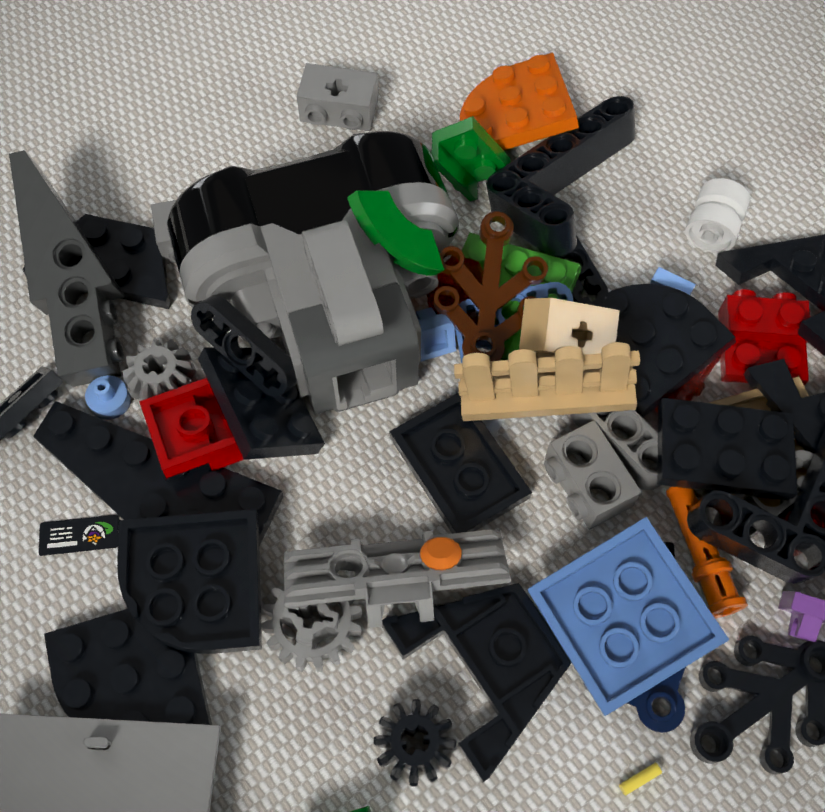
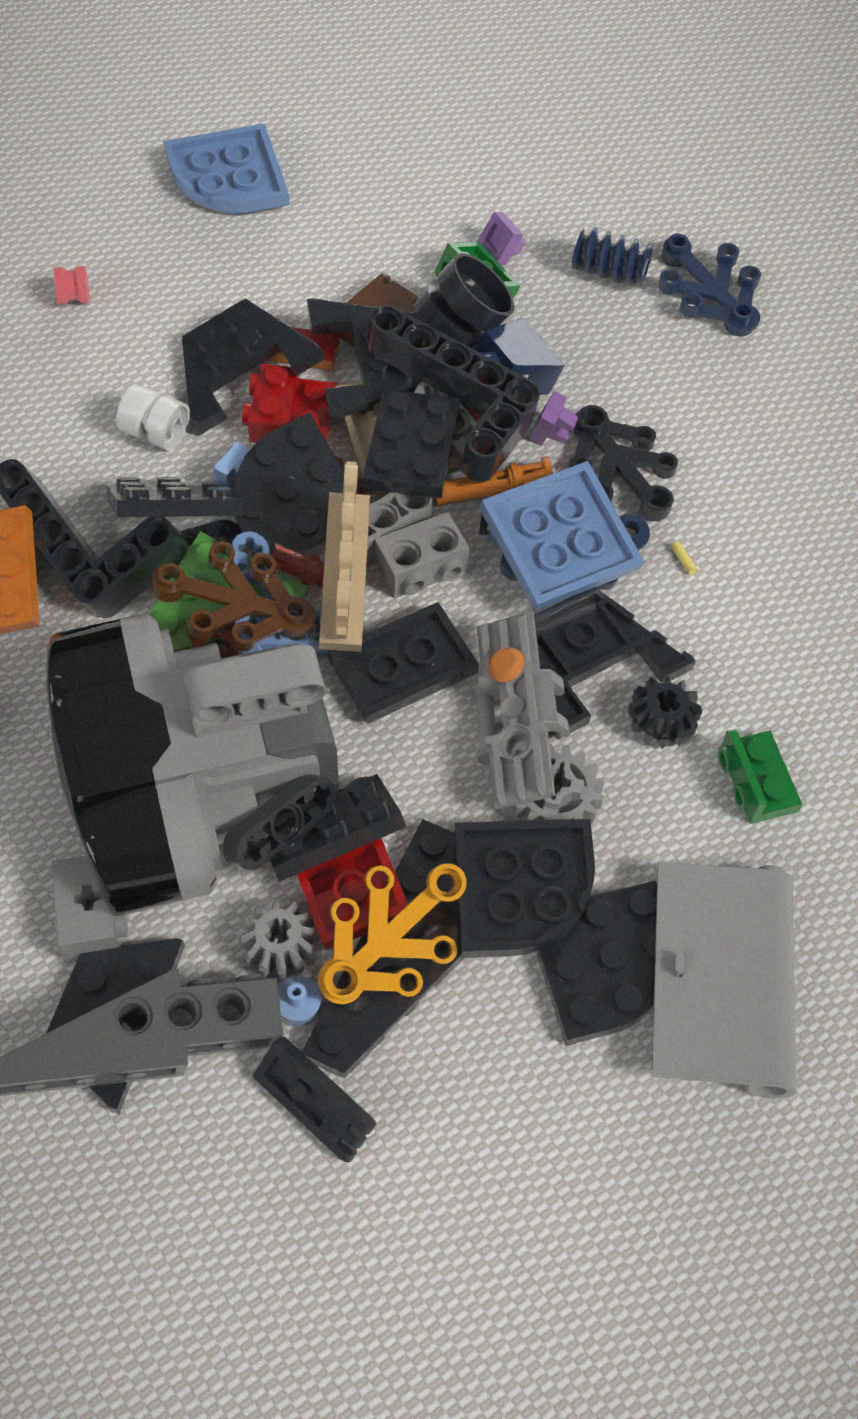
camera: 90 degrees left, 5 degrees down
(78, 535) = (456, 1025): black sticker -> none
(106, 424) = (384, 937): none -> light orange plant
(385, 224) = (185, 649): green tile -> none
(467, 155) = (46, 611): green bracket -> none
(561, 323) = (292, 536): tan brick -> none
(606, 230) = (172, 498): none -> black plate

